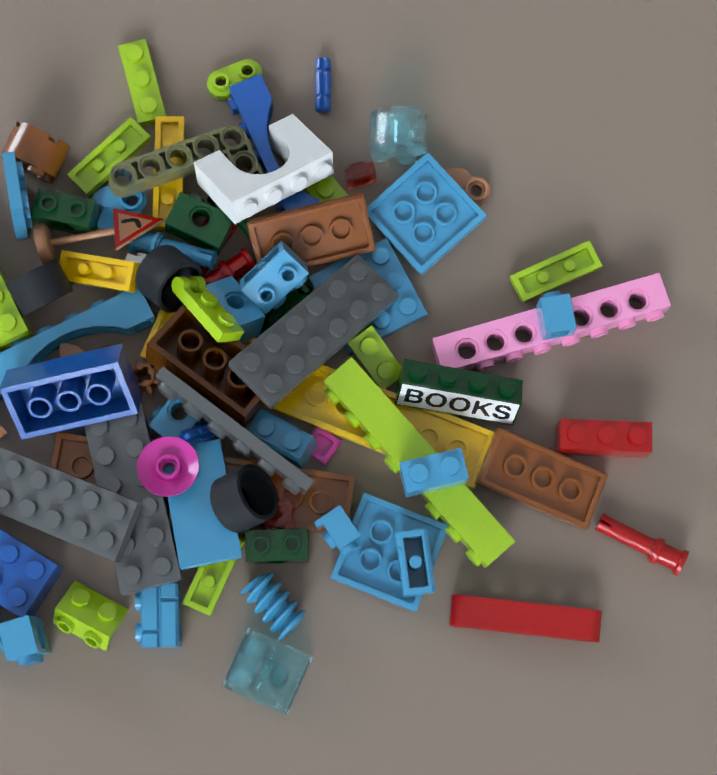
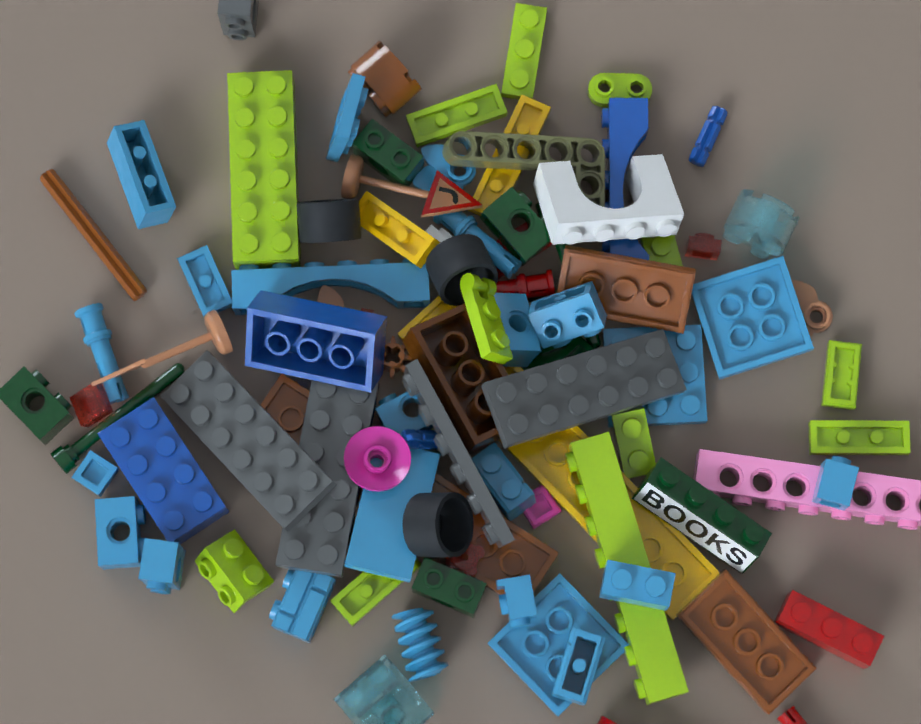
camera: 25 degrees right, 0 degrees up
(518, 228) = (841, 375): none -> lime plate

